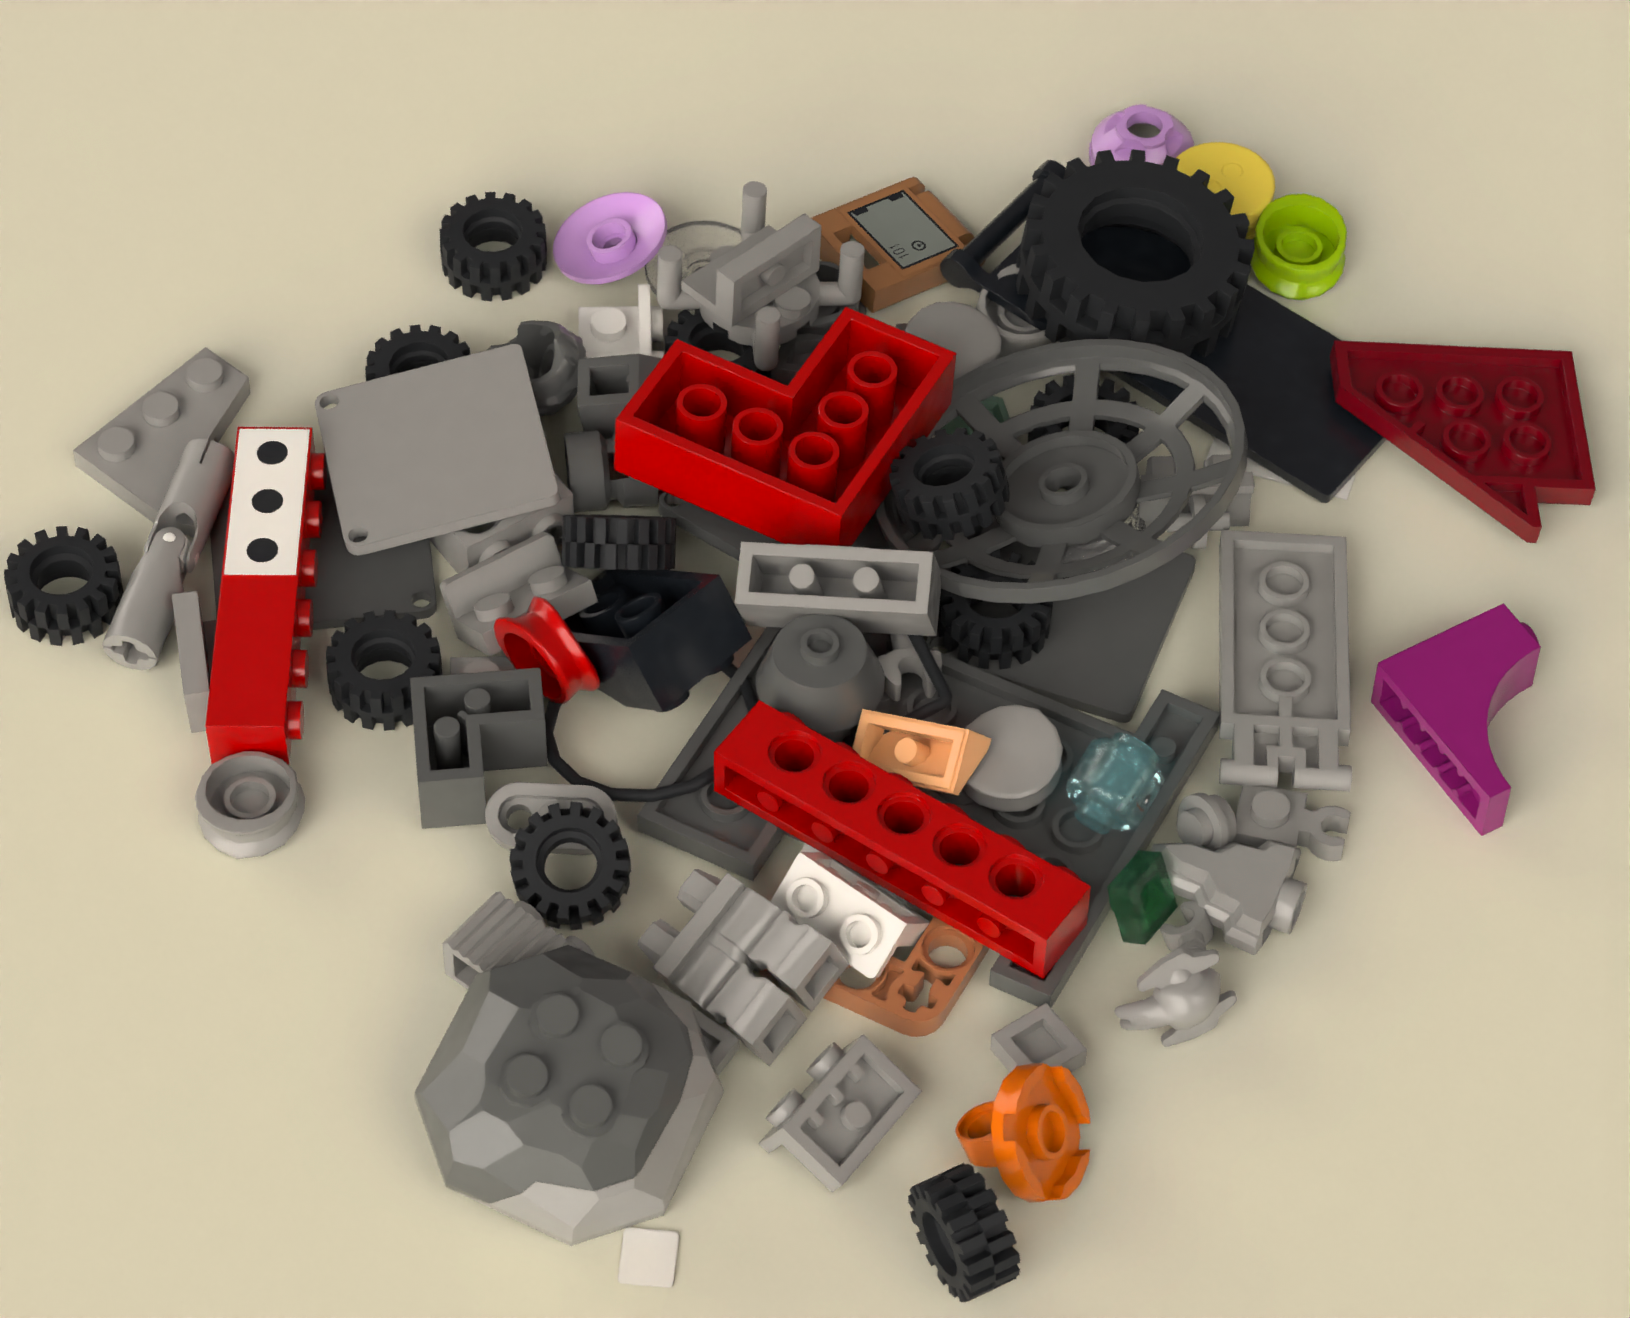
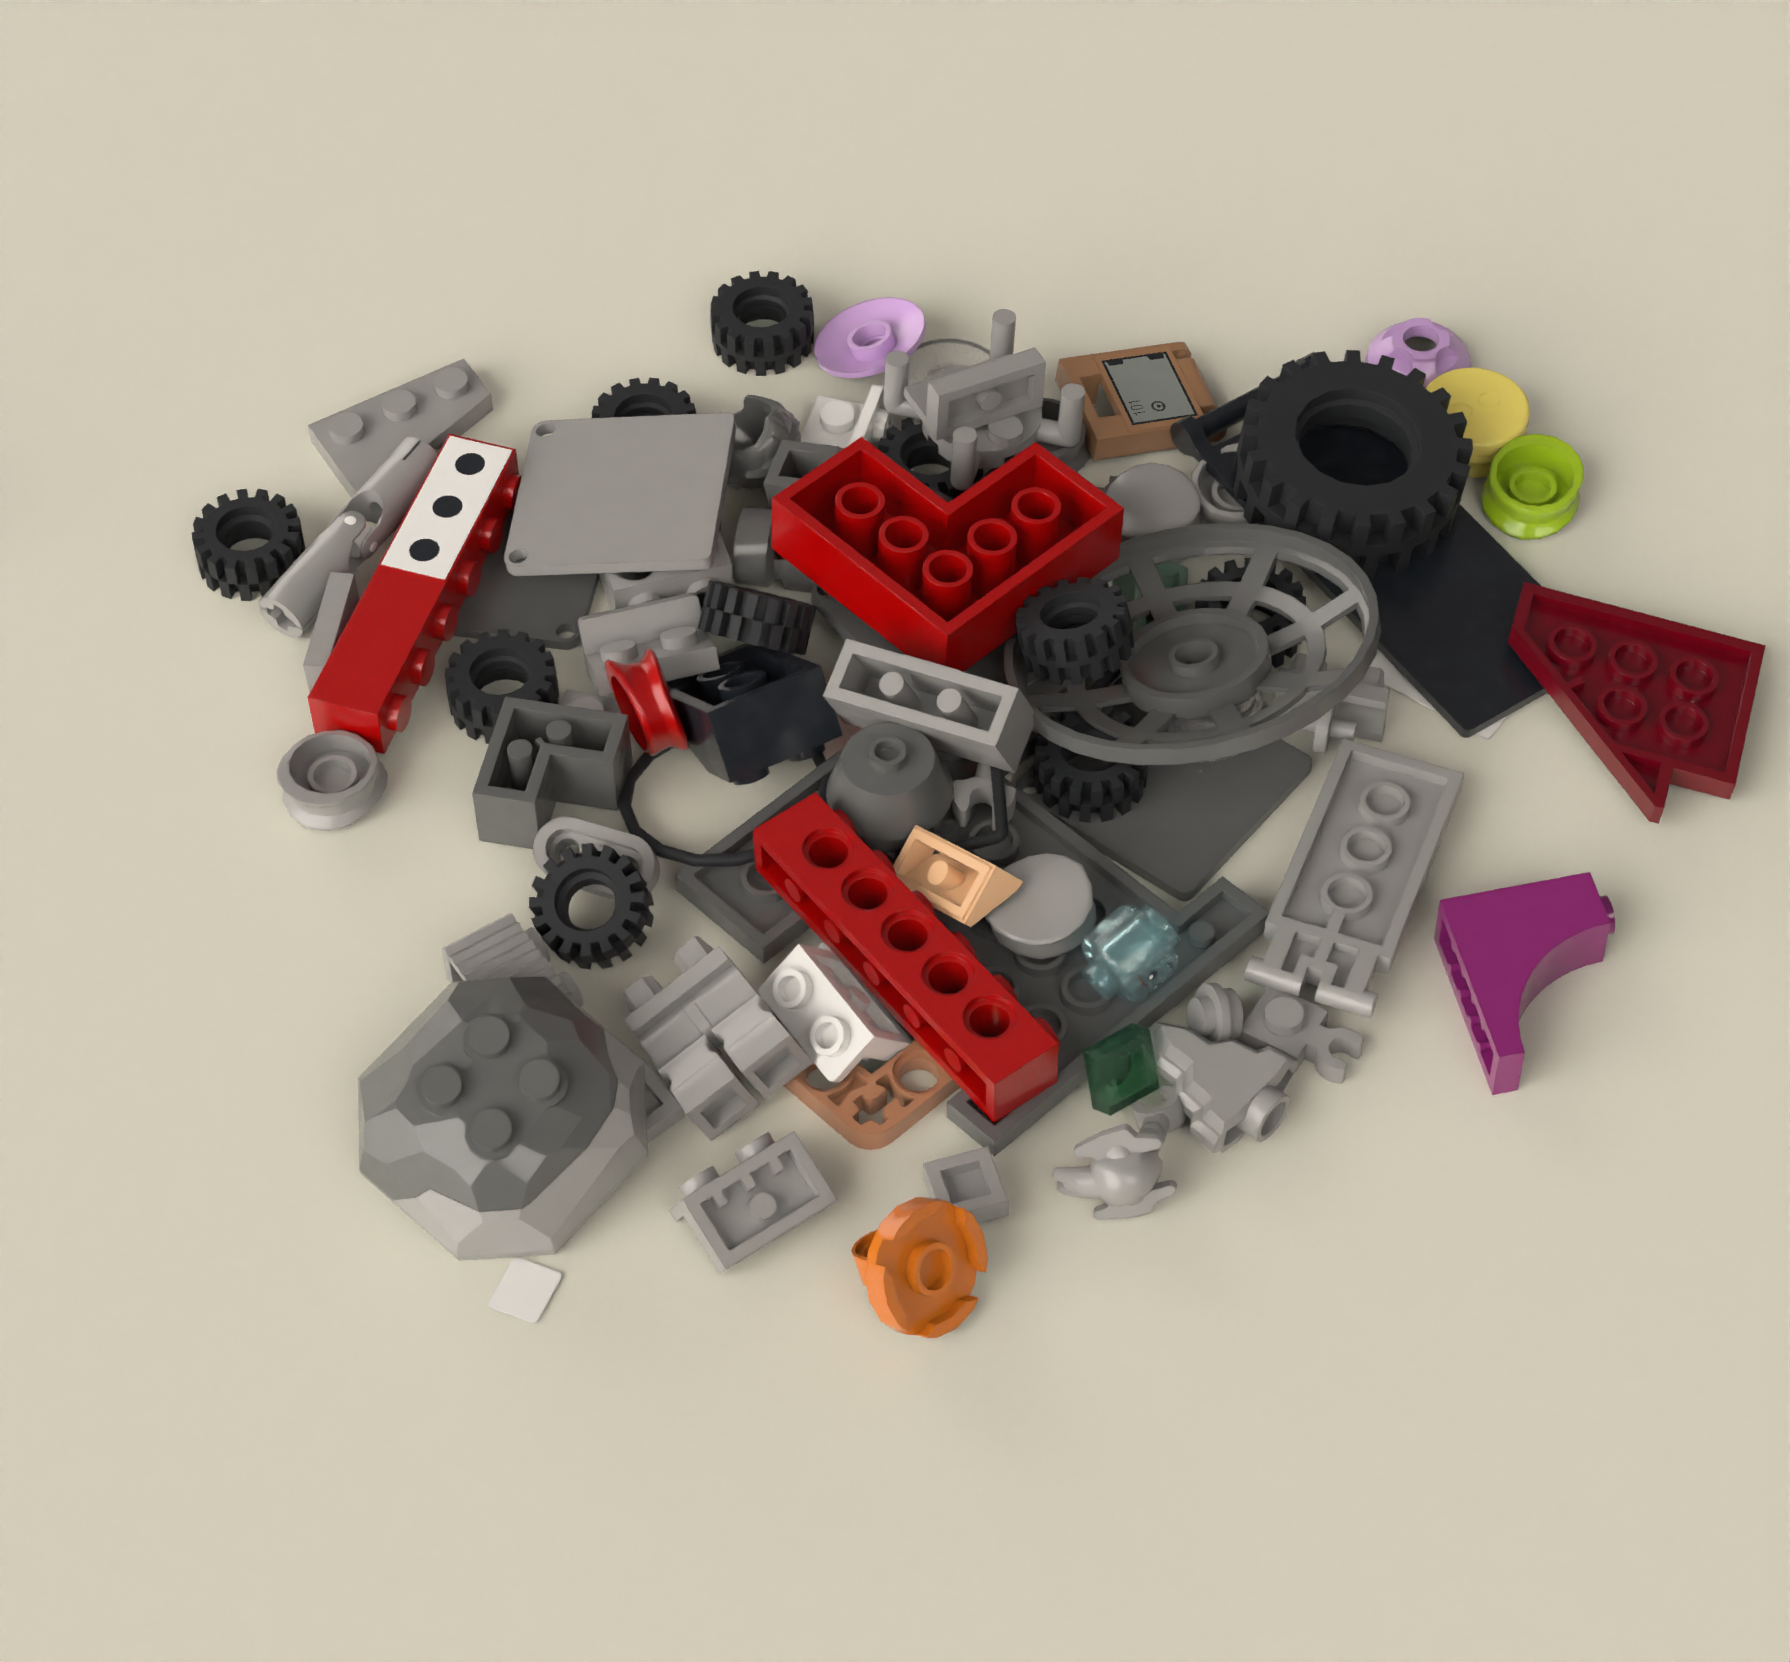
camera: 20 degrees right, 0 degrees up
(964, 1232) = (814, 1343): black tyre -> none

